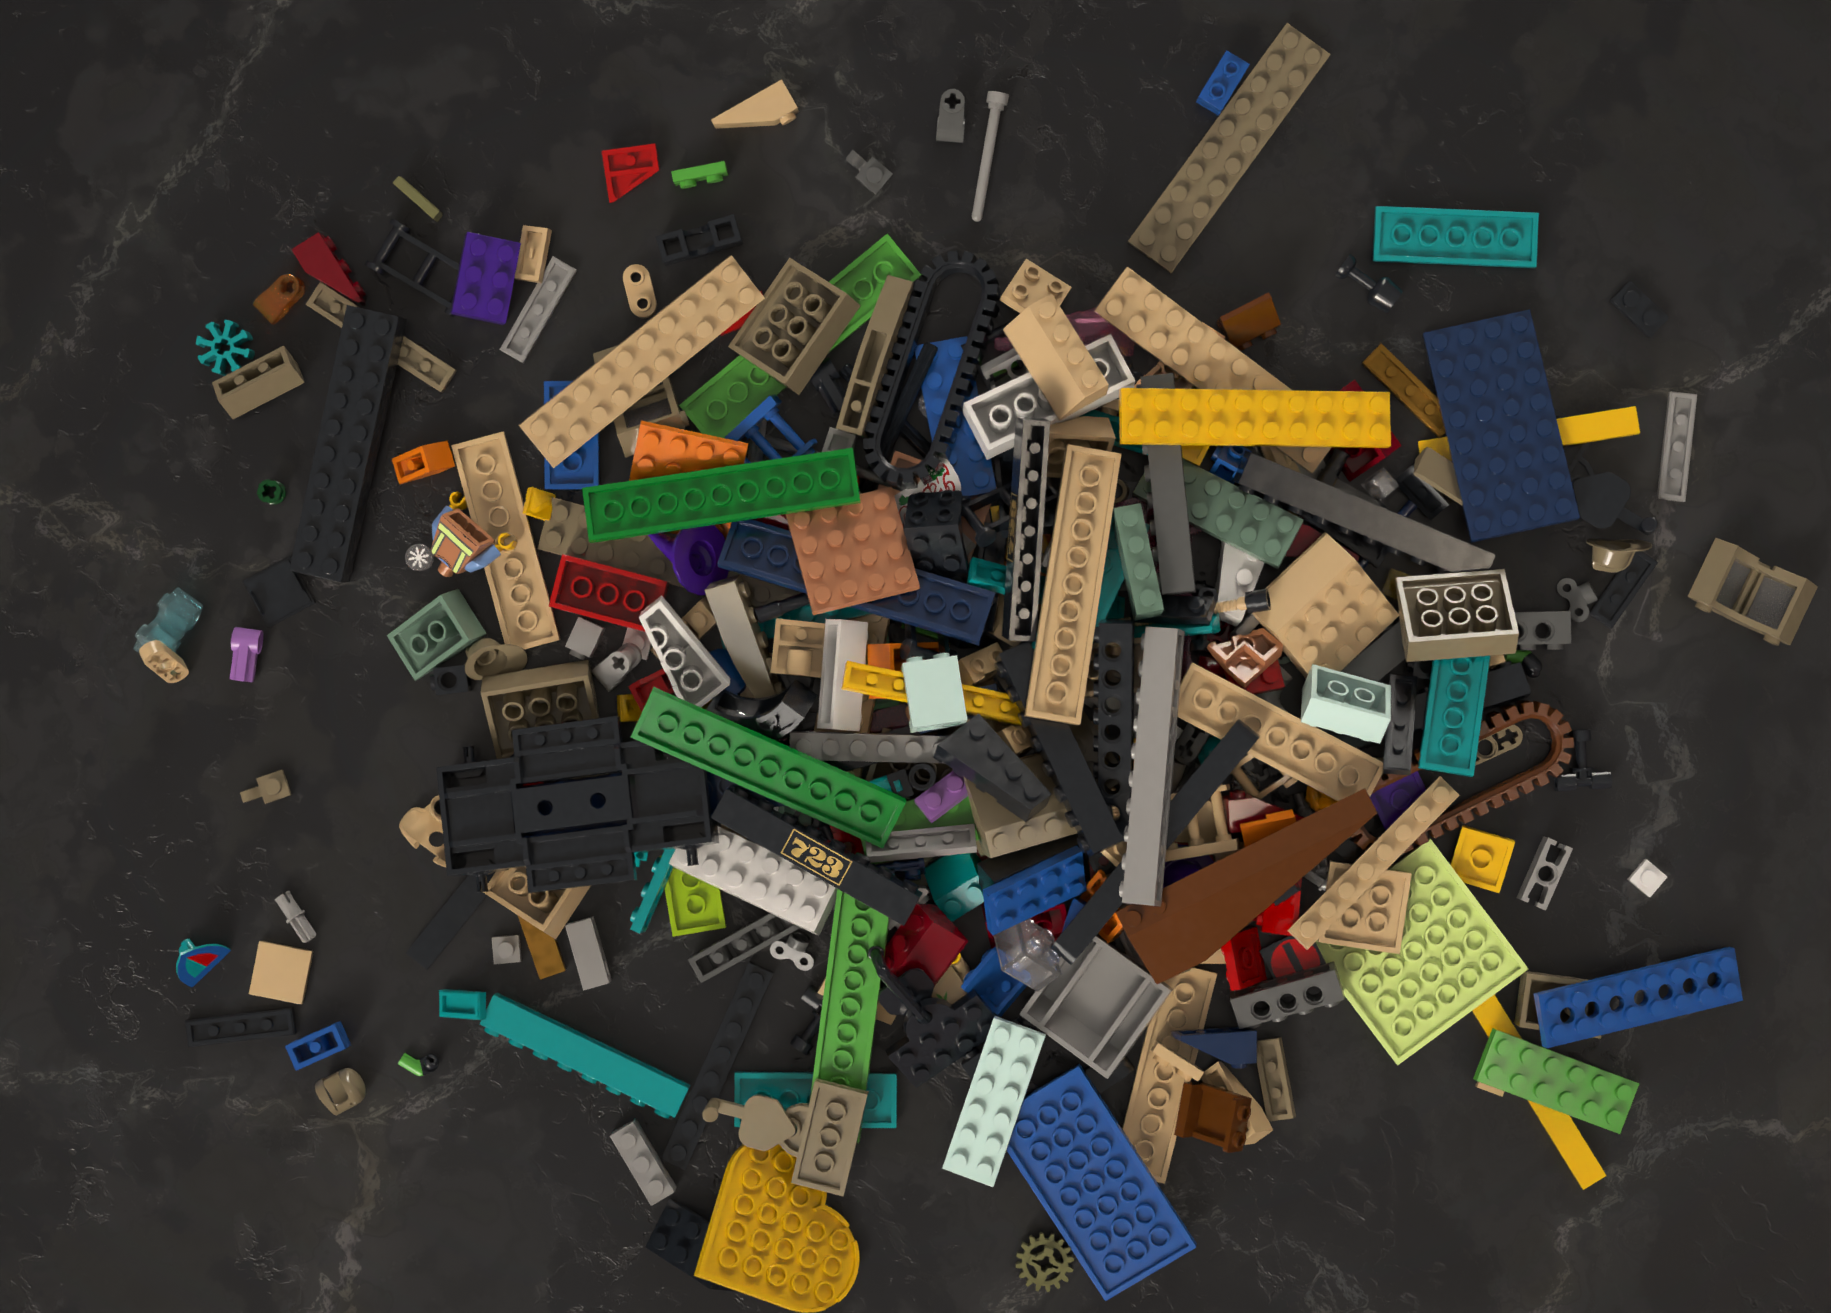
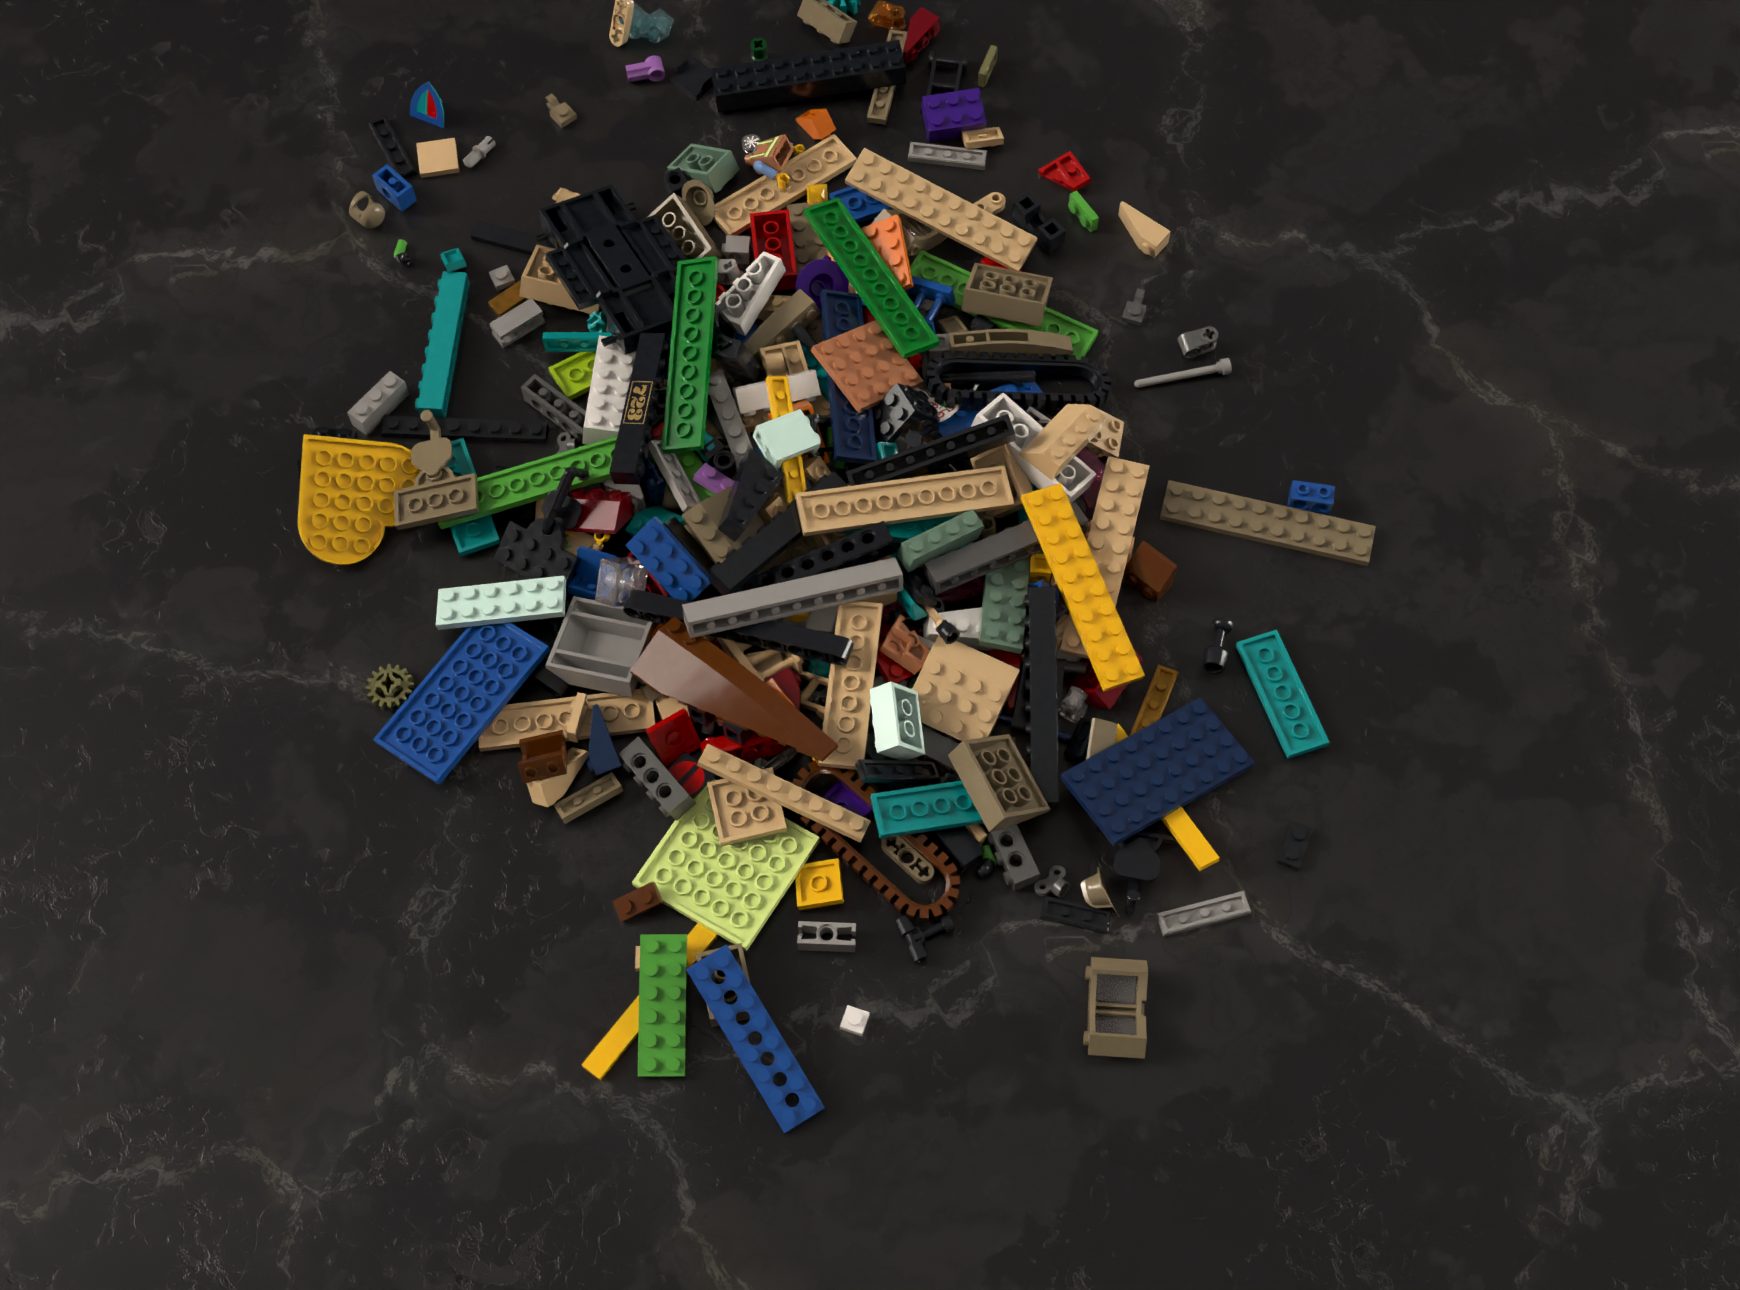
camera: 70 degrees right, 25 degrees down
(814, 412) = (951, 325): none -> dark tan tile
(1423, 1066) = (638, 901): none -> reddish brown plate

